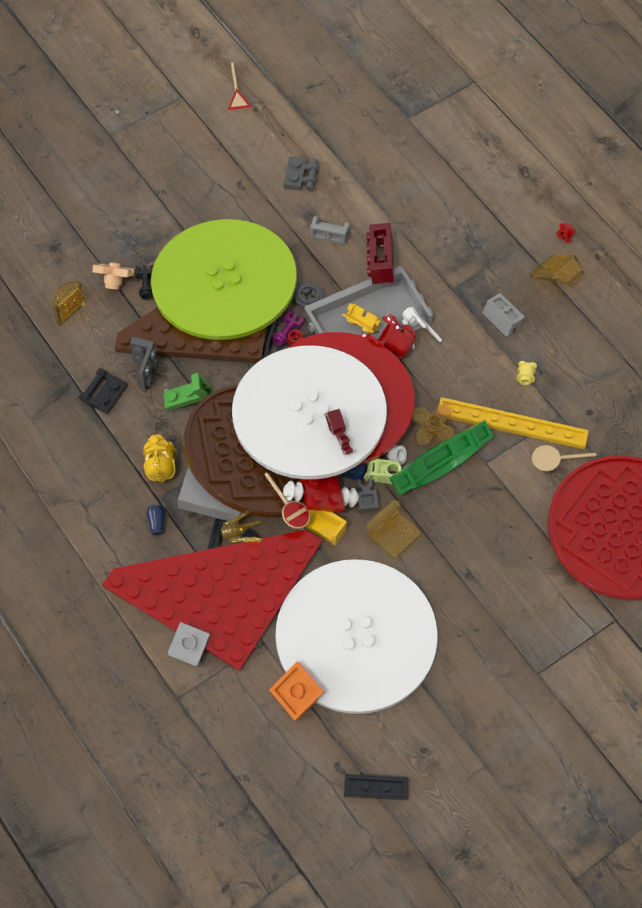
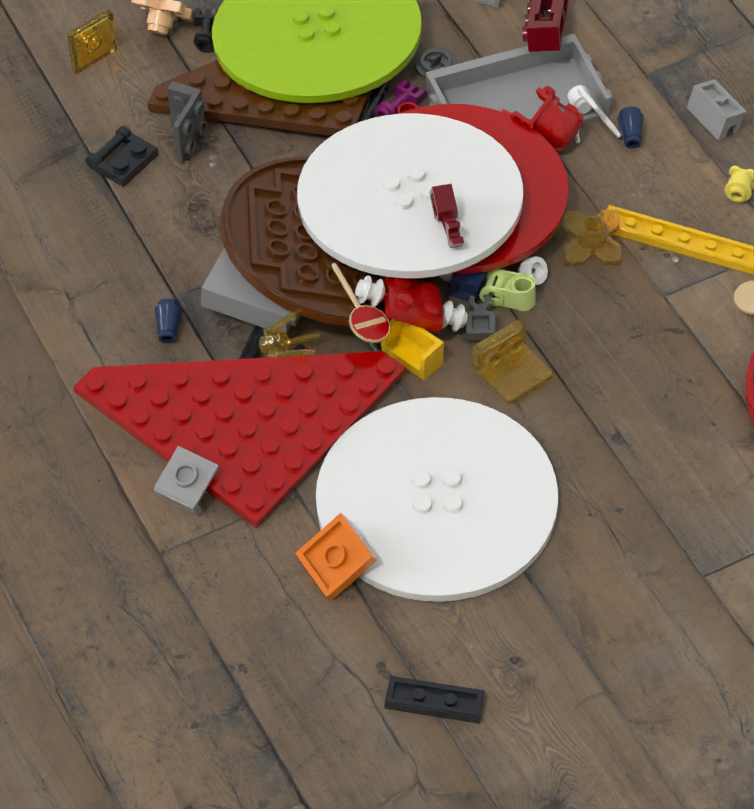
camera: 10 degrees right, 10 degrees down
(159, 458) = (188, 246): yellow helmet -> none
(188, 393) = (229, 170): bright green bracket -> none
(368, 323) = (499, 91): yellow hinge -> none
(441, 458) = (598, 280): green piece -> none
(447, 331) = (631, 126): none -> dark blue cone

